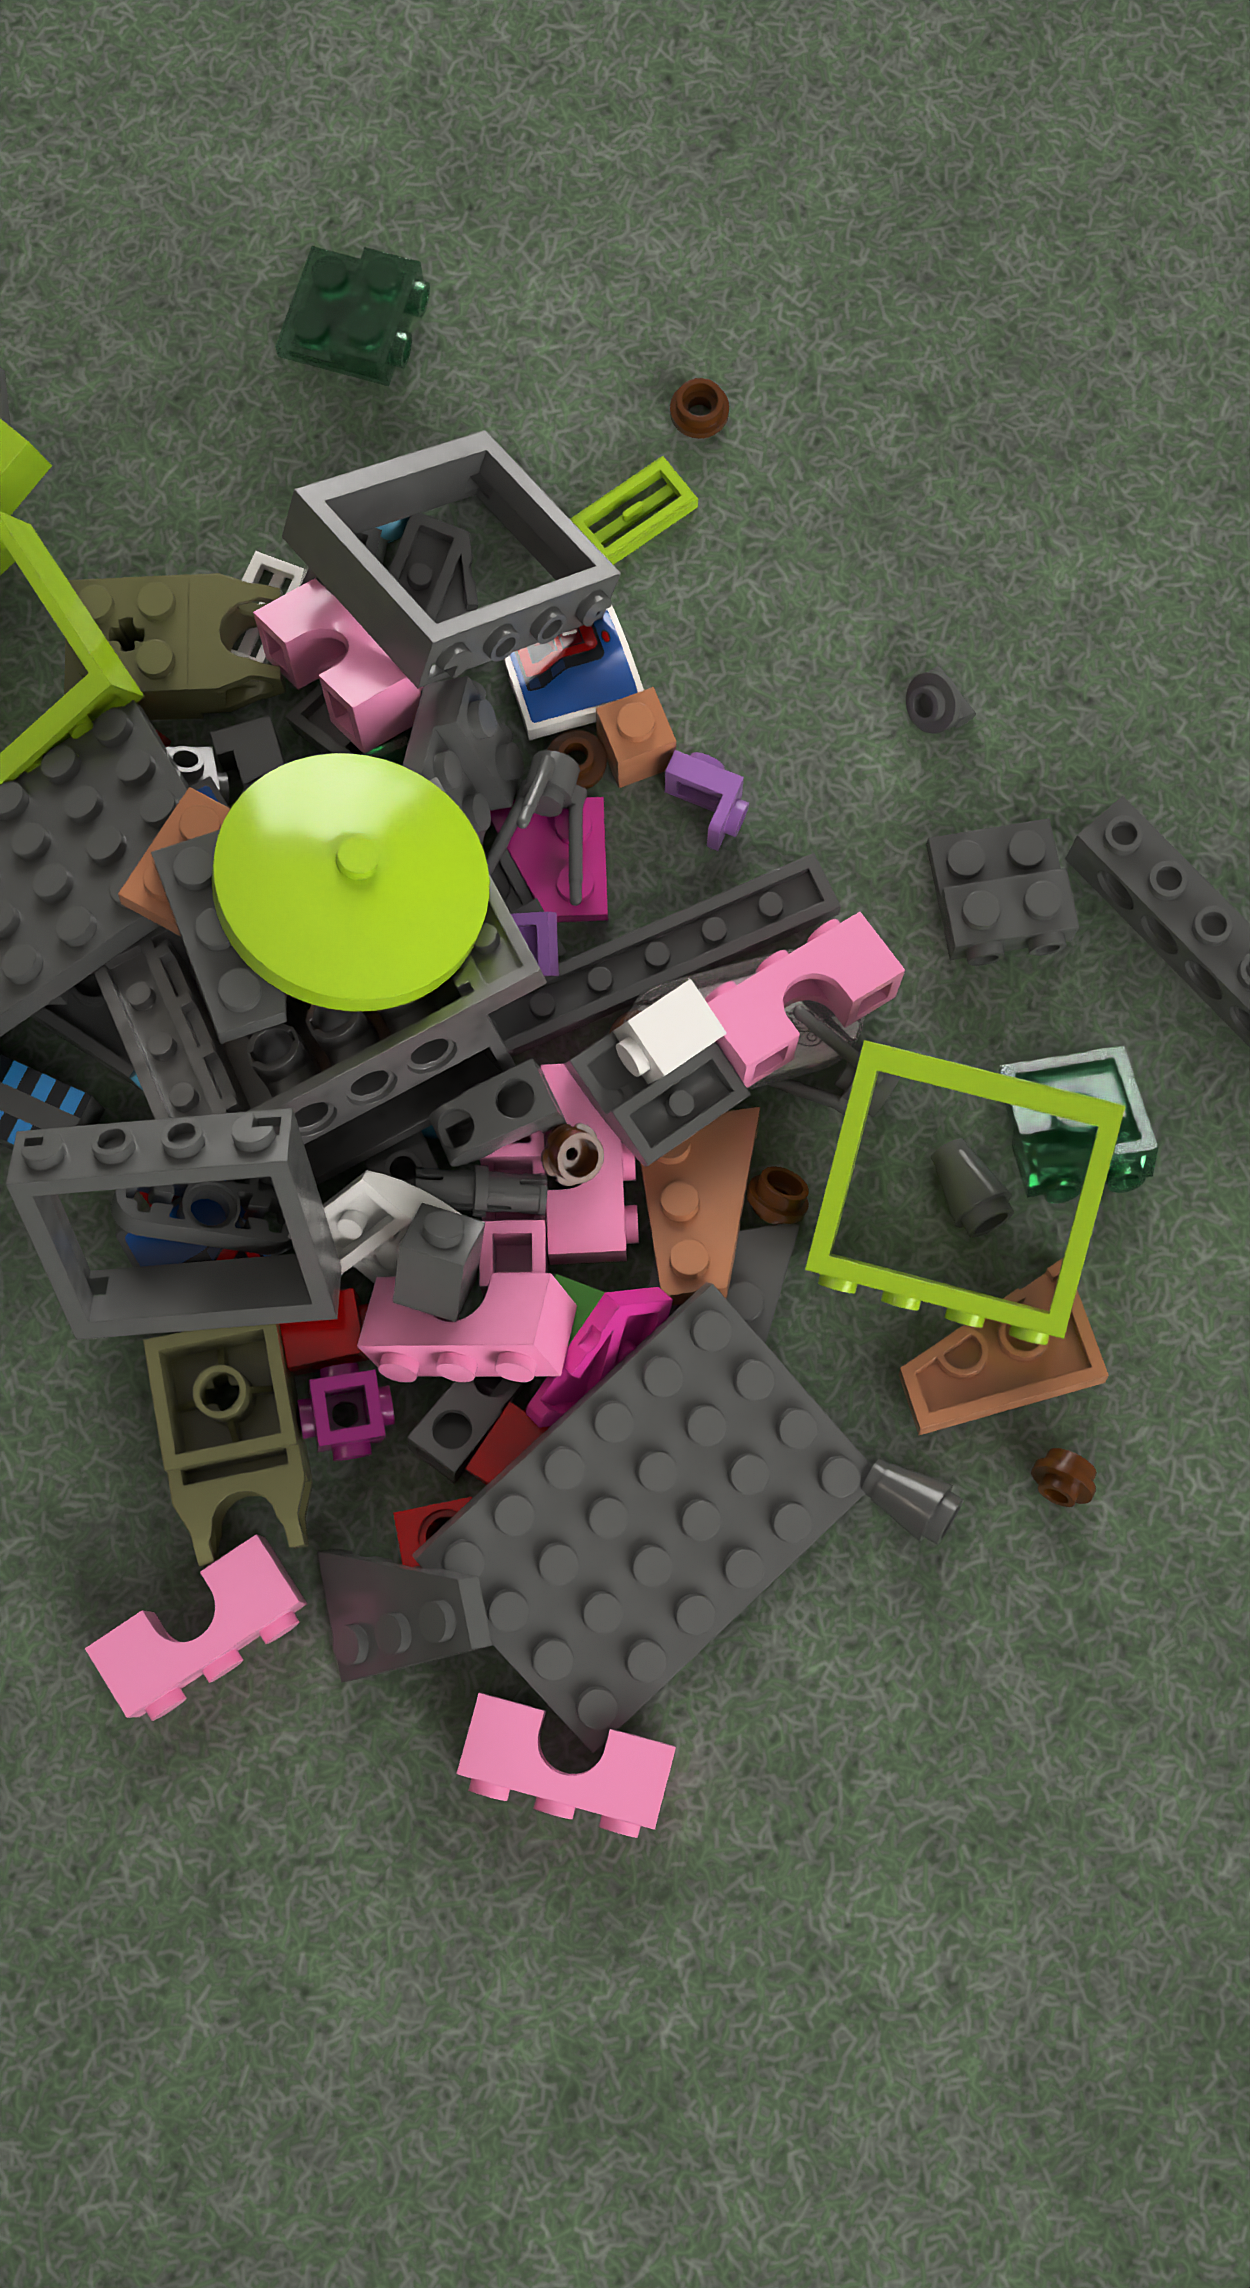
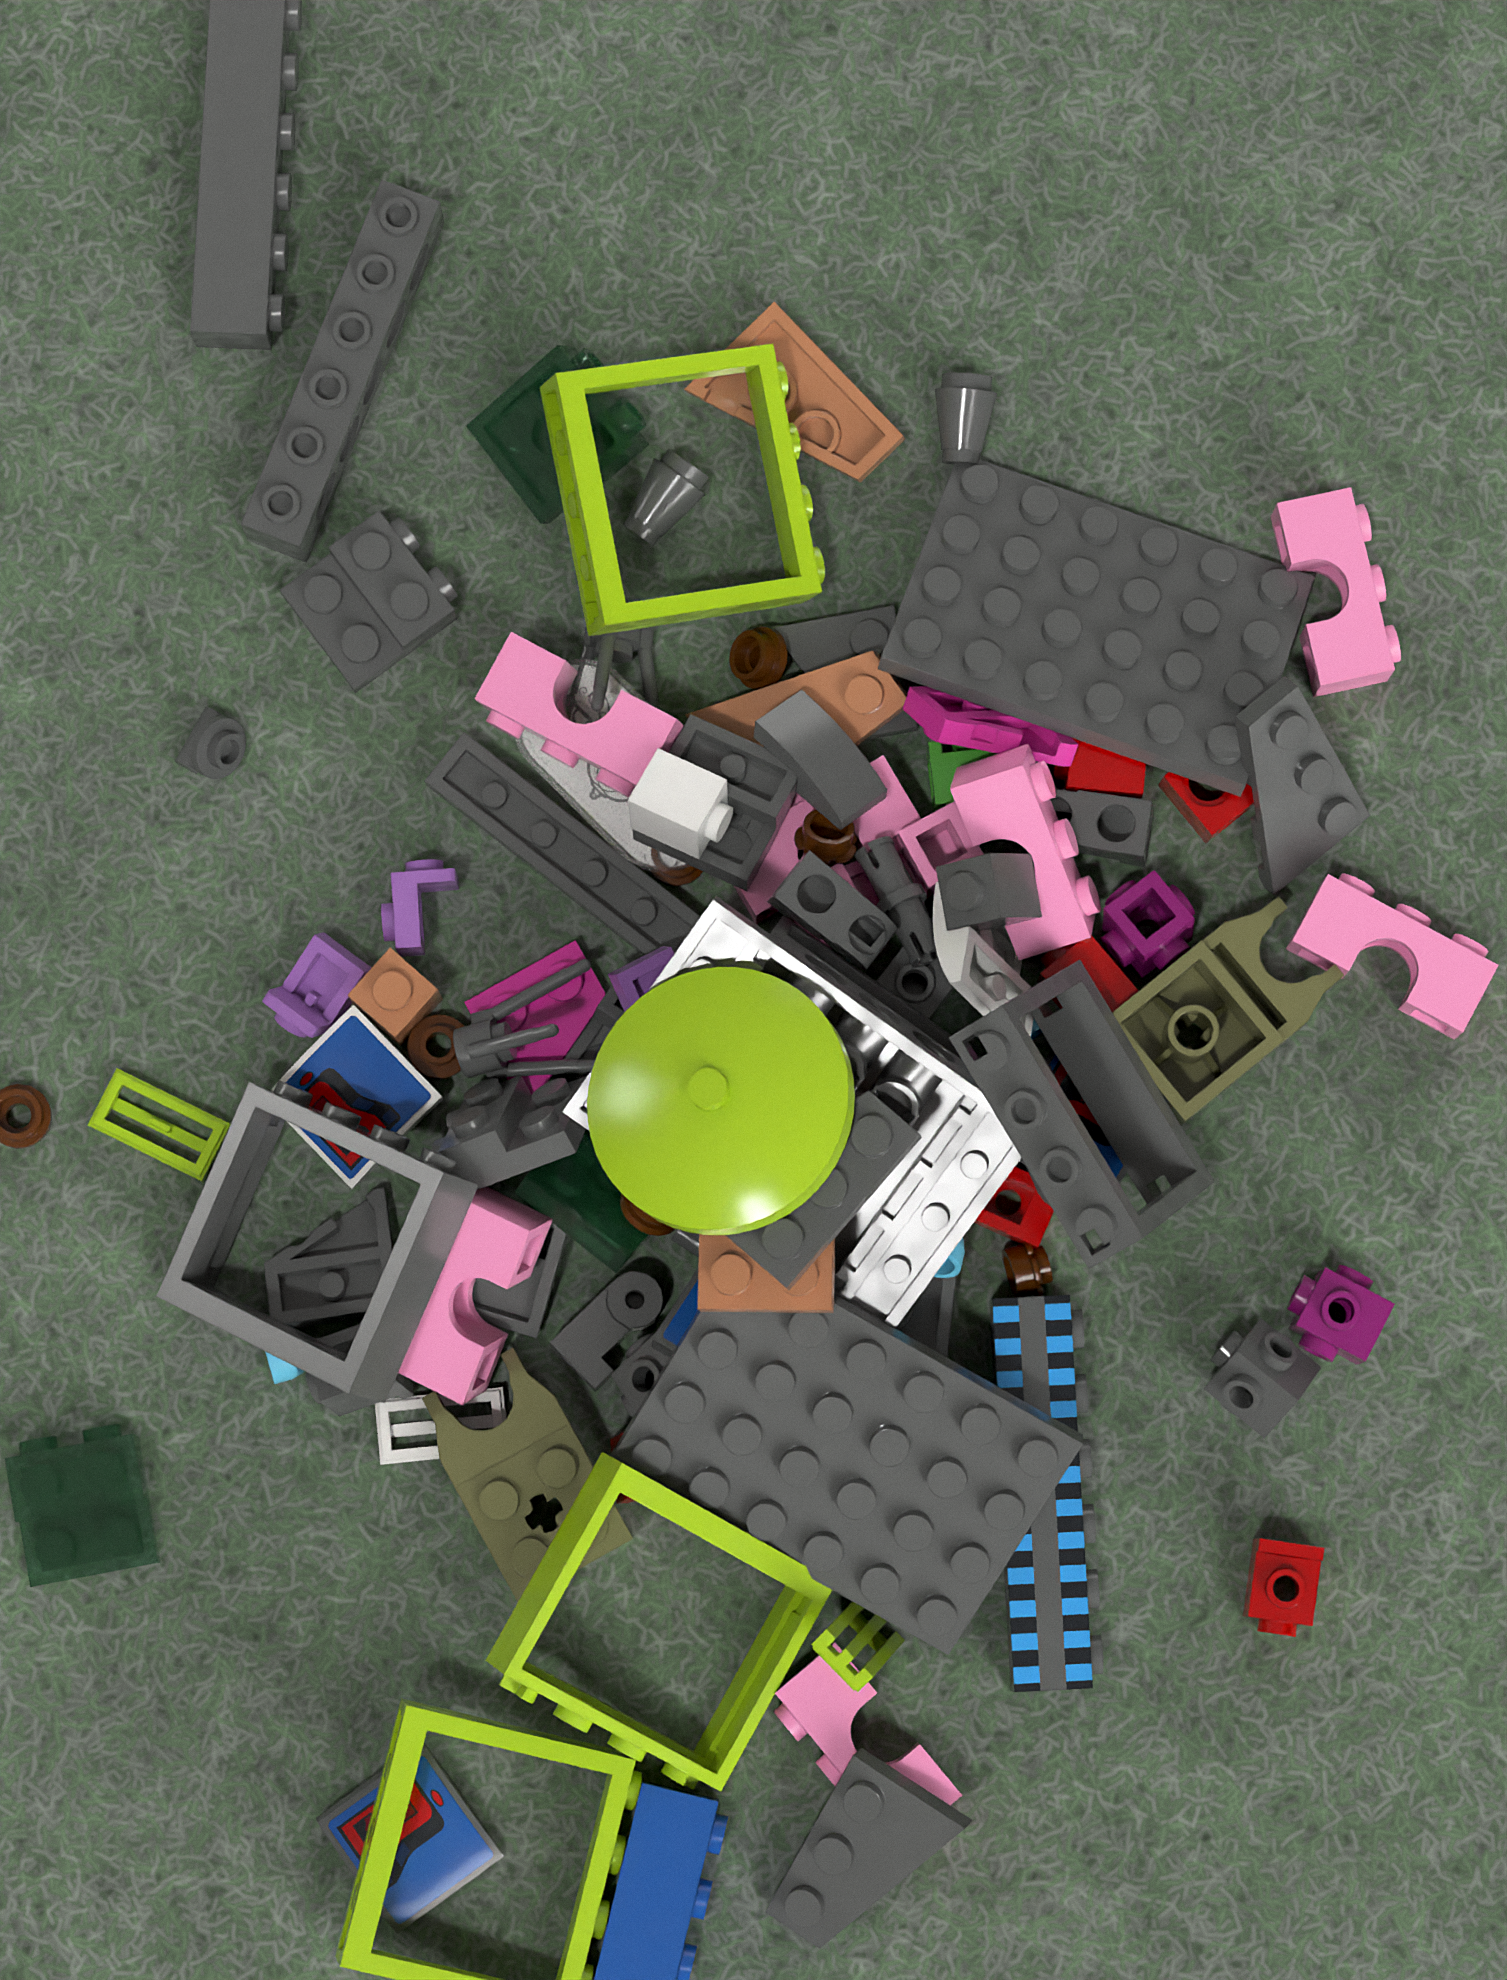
camera: 120 degrees left, 5 degrees up
(646, 1184) = (828, 763): none -> dark grey slope
(679, 678) = (316, 988): none -> medium lavender bracket
(1065, 1477) = (879, 300): reddish brown plate -> none

